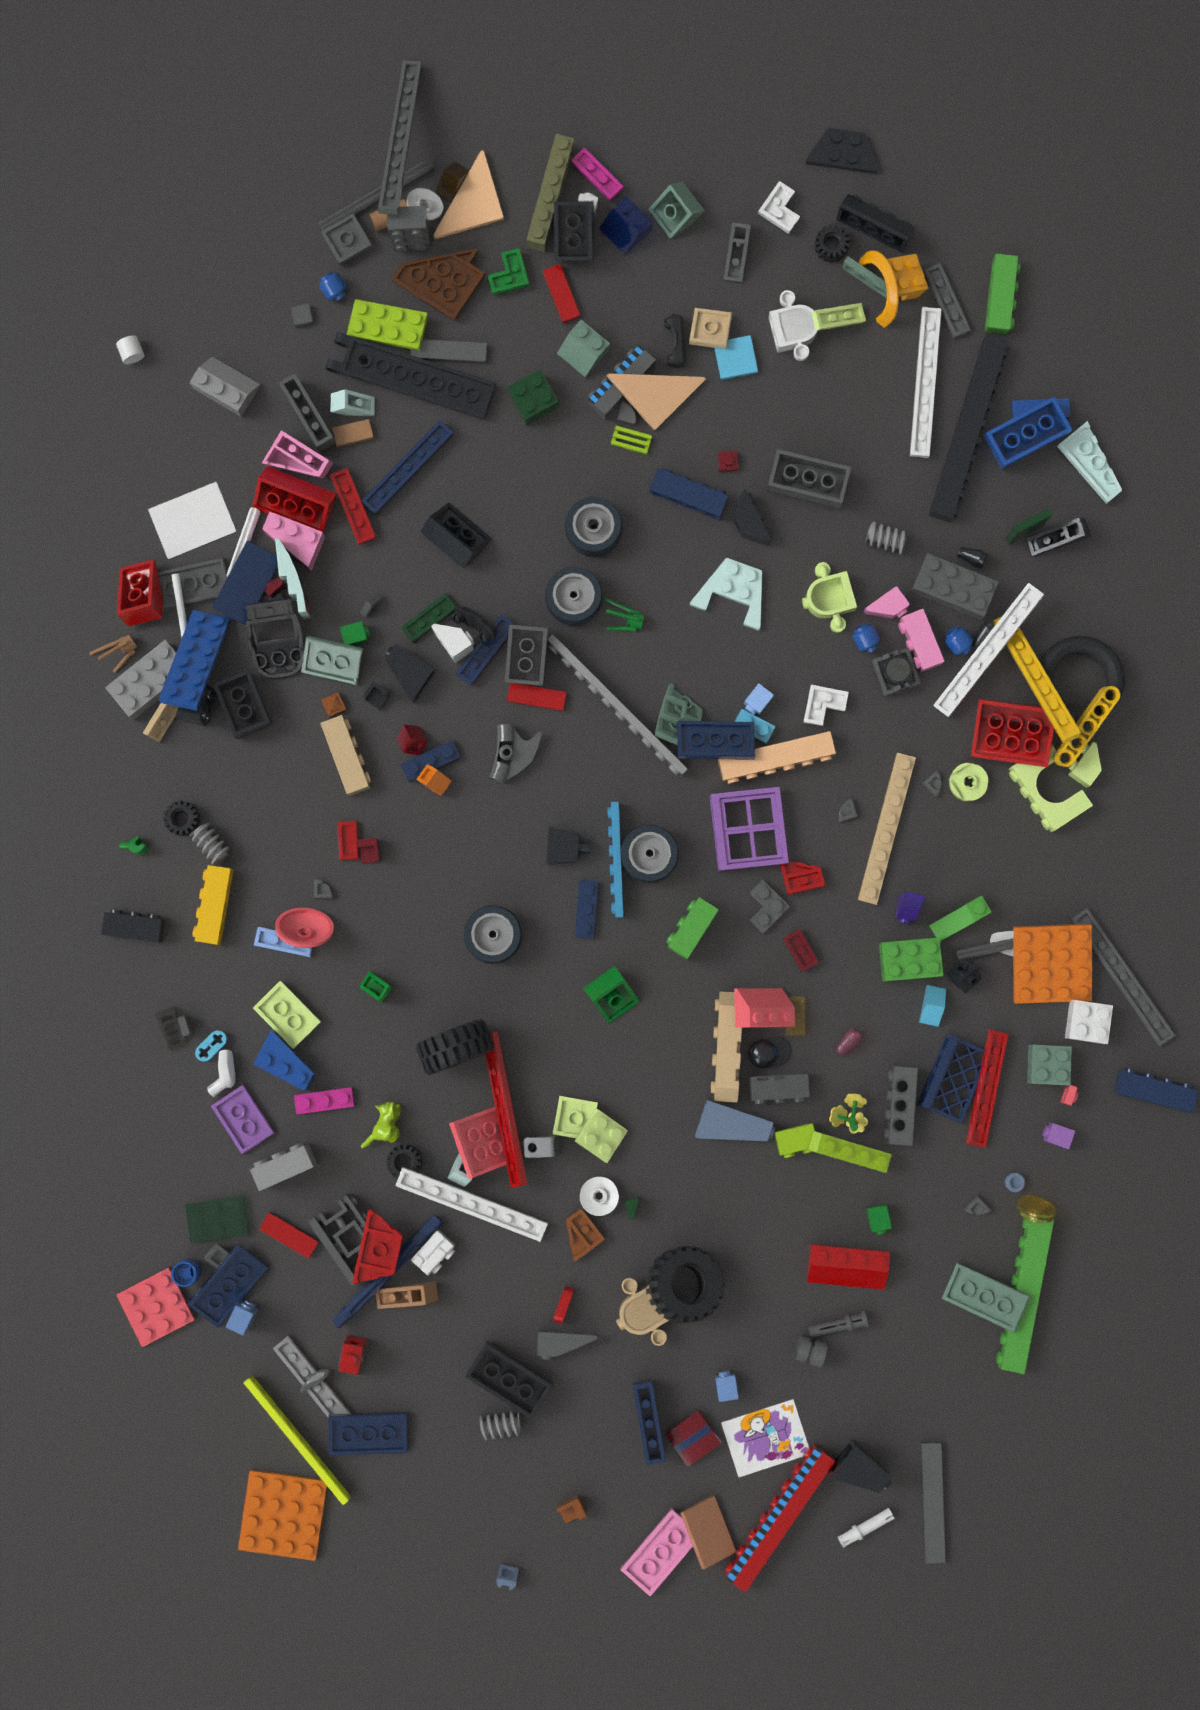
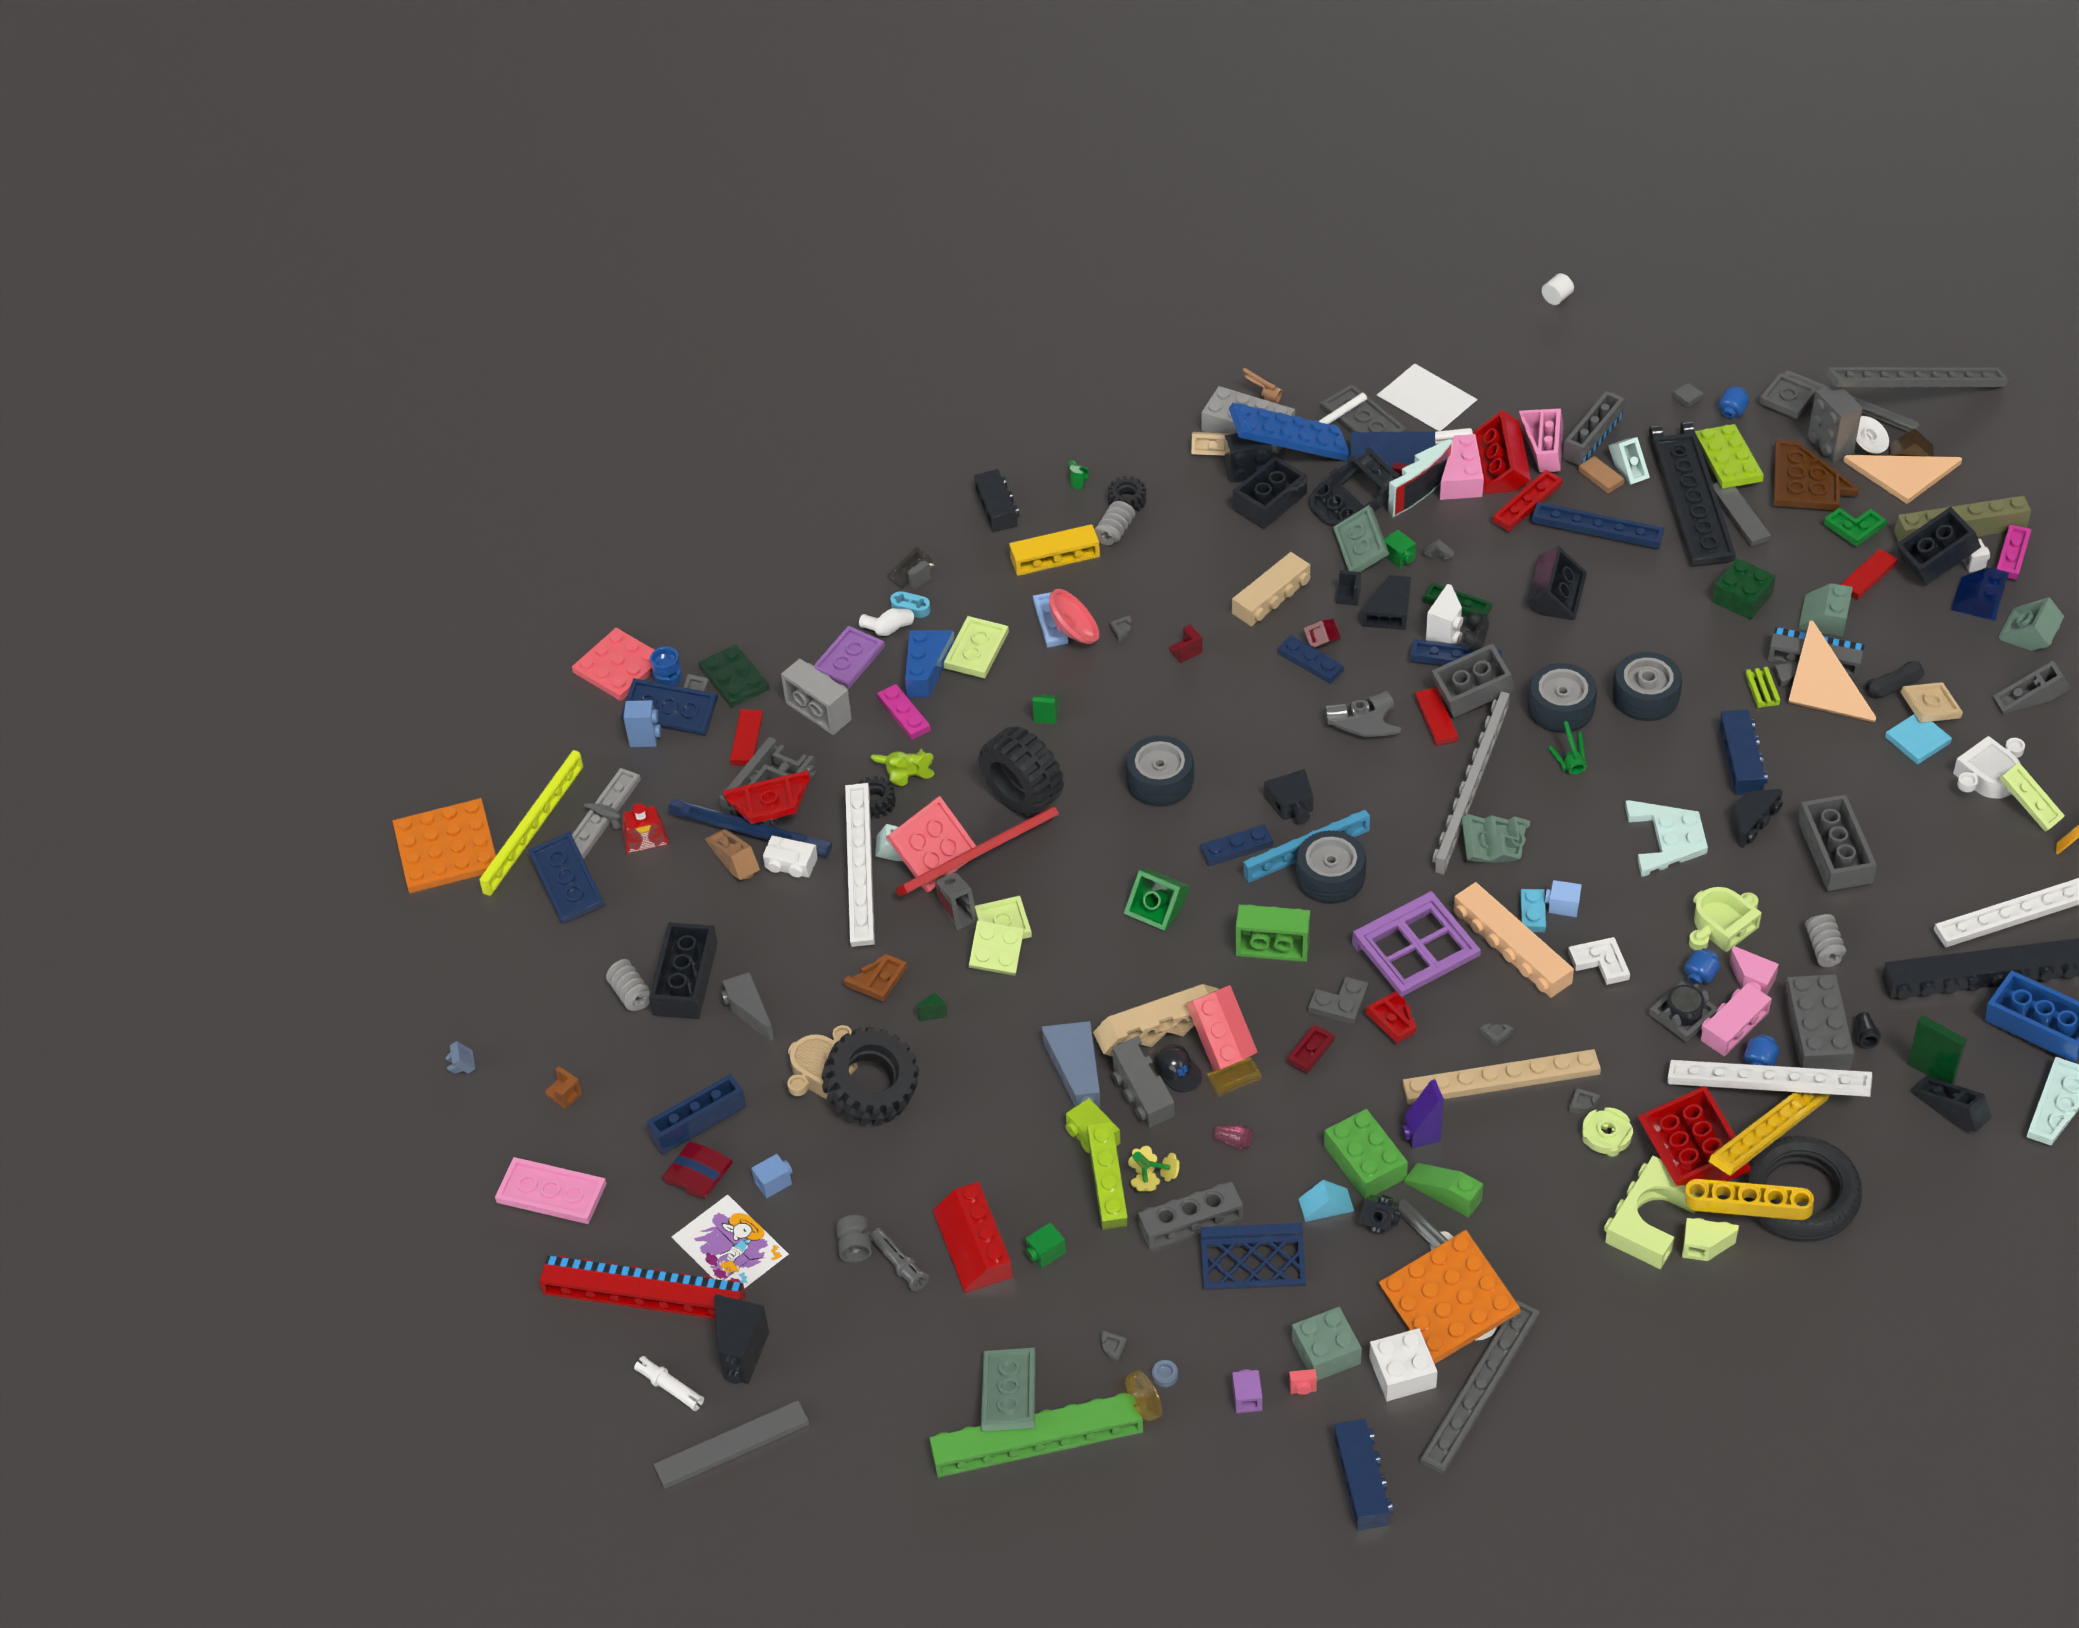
camera: 65 degrees right, 35 degrees down
(139, 593) = (1325, 381): red slope -> none
(224, 385) = (1575, 365): light grey slope -> none
(333, 705) = (1318, 563): dark orange tile -> none
(348, 840) = (1174, 631): red tile -> none
(434, 780) = (1291, 663): orange brick -> none
(563, 1305) = (790, 990): red beam -> none
(599, 1206) = (931, 967): white dish -> none
(708, 1532) = (594, 1222): nougat tile -> none
(715, 740) = (1492, 870): dark blue tile -> none
(727, 461) = (1803, 775): dark red plate -> none
(987, 1088) = (1261, 1295): red tile -> none

